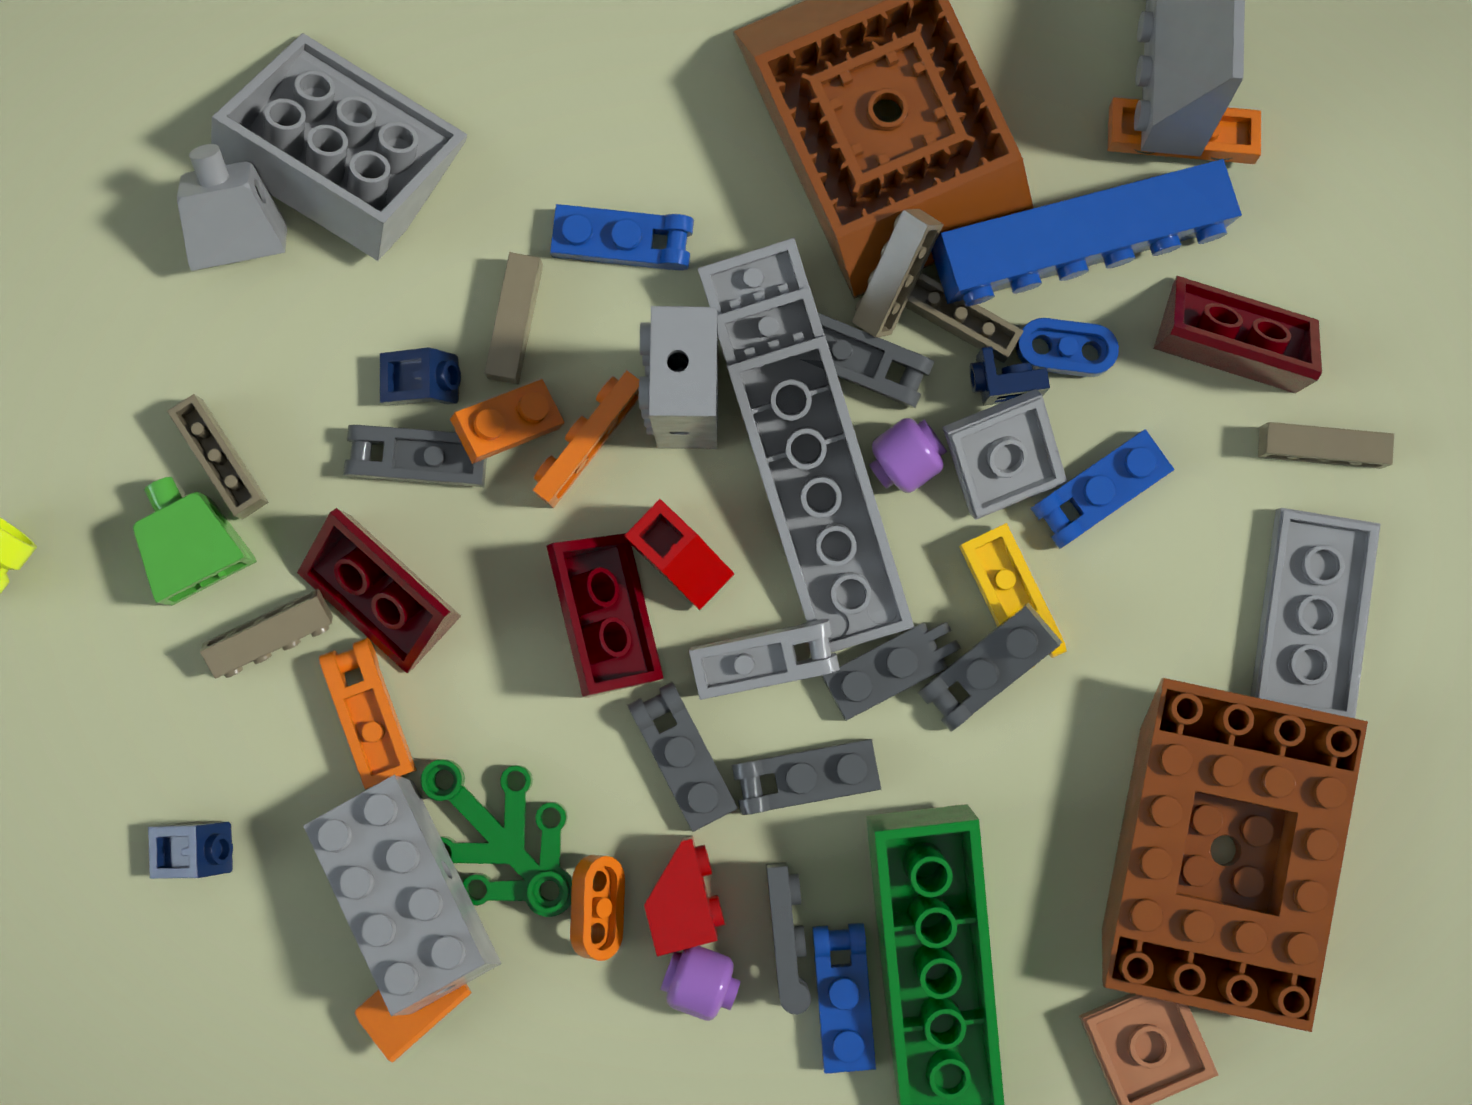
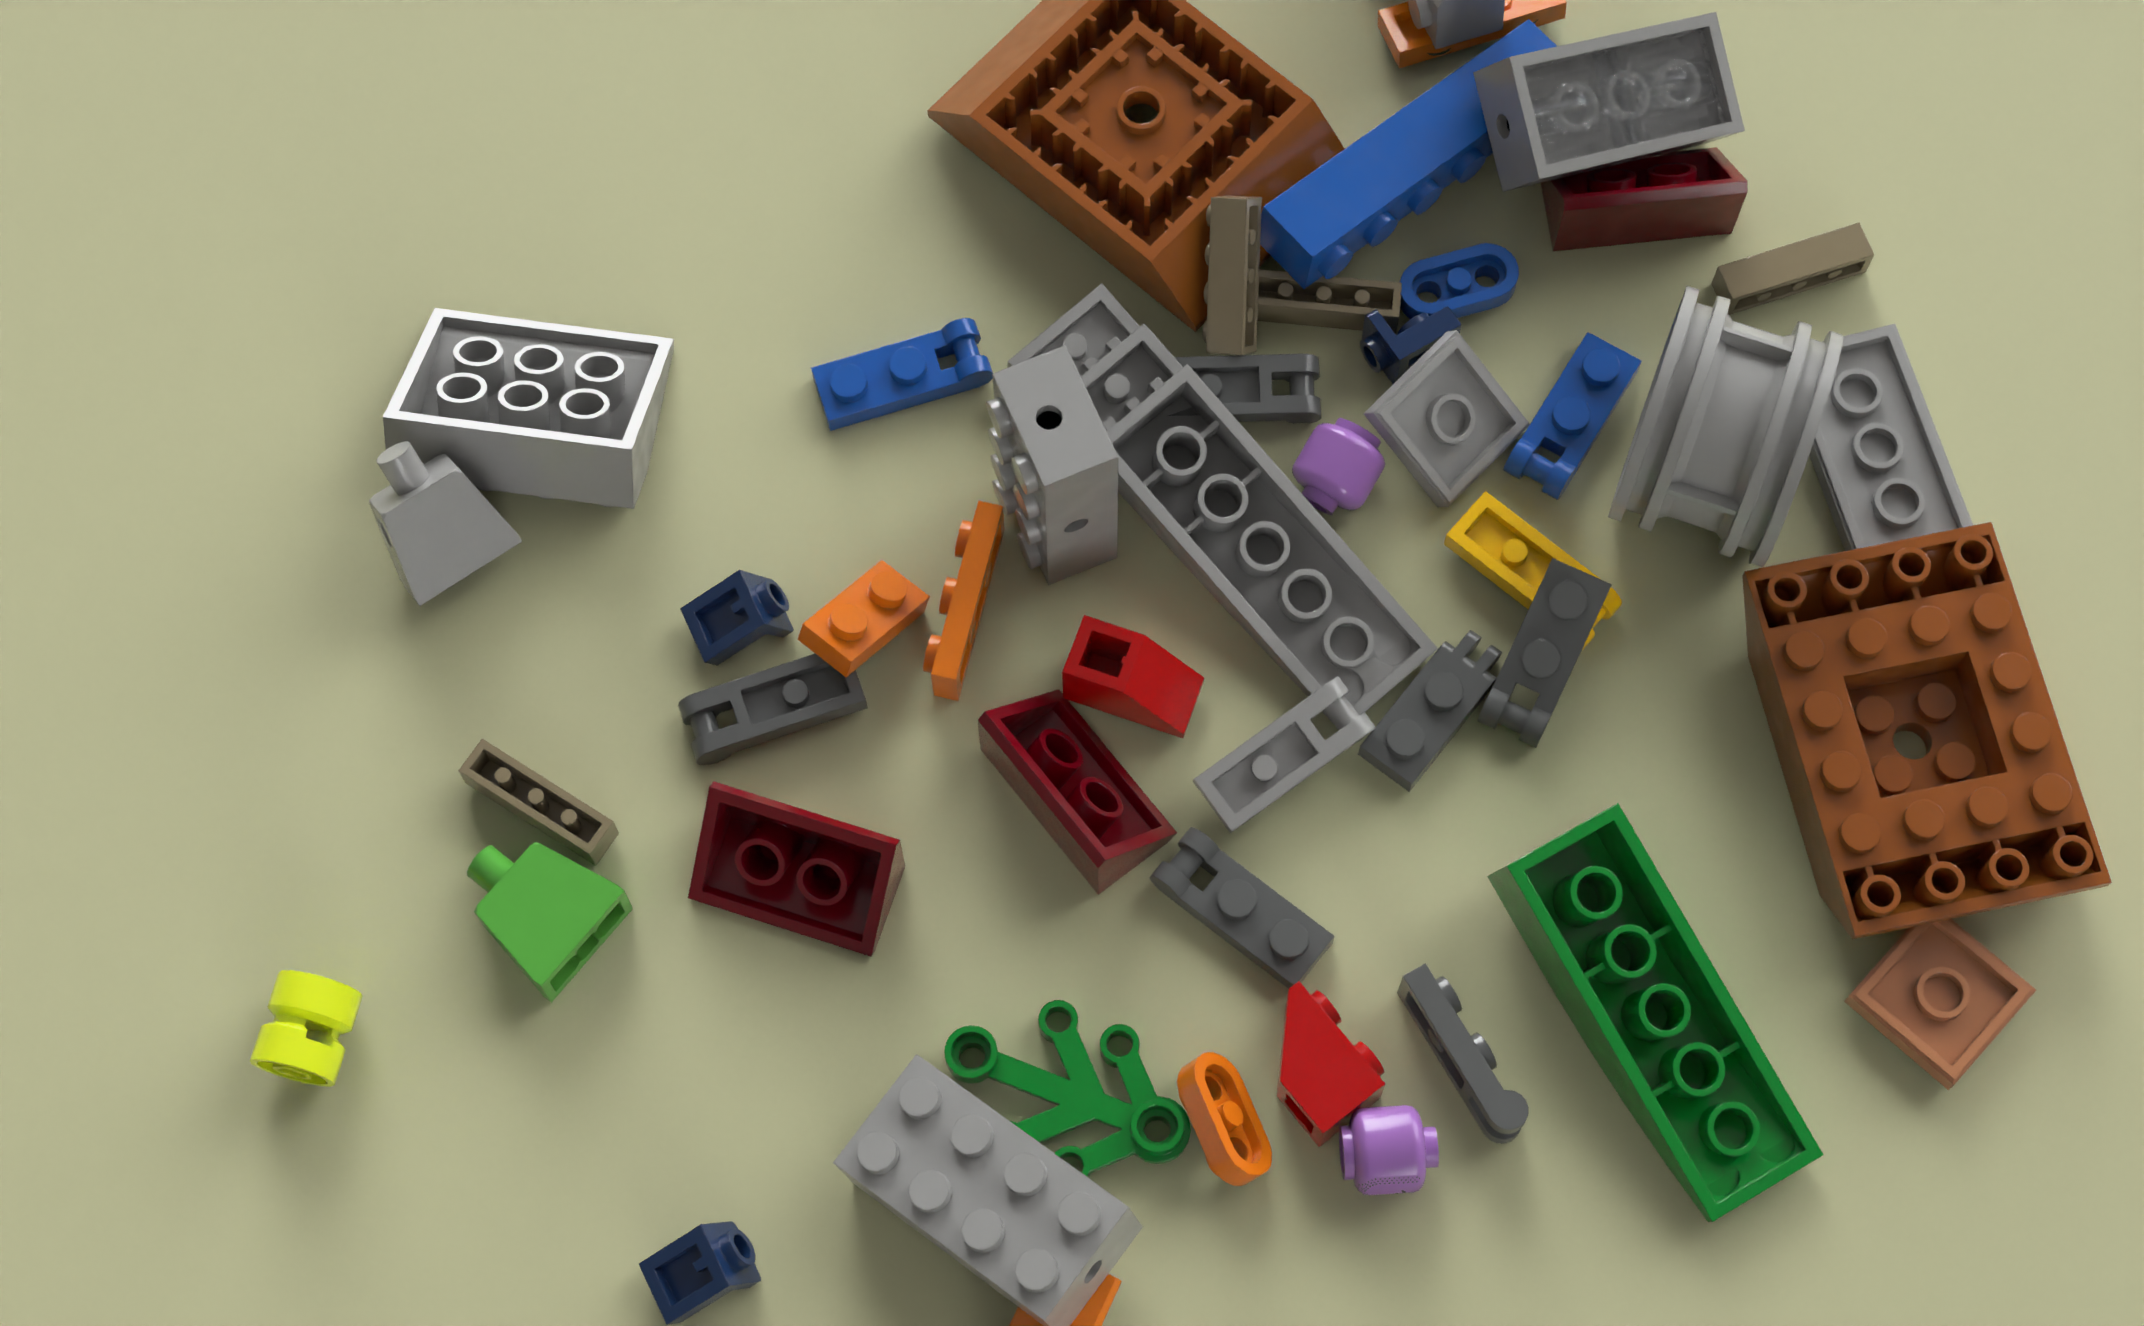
camera: 20 degrees left, 15 degrees down
(267, 633) = (684, 977): dark tan piece -> none
(367, 714) = (844, 1016): orange plate -> none
(513, 318) = (818, 509): dark tan piece -> none
(808, 776) = (1398, 868): dark grey plate -> none
(844, 1000) = (1564, 1103): blue plate -> none
(1205, 569) = (1727, 427): none -> light grey wheel
(1248, 259) = (1608, 101): none -> brick

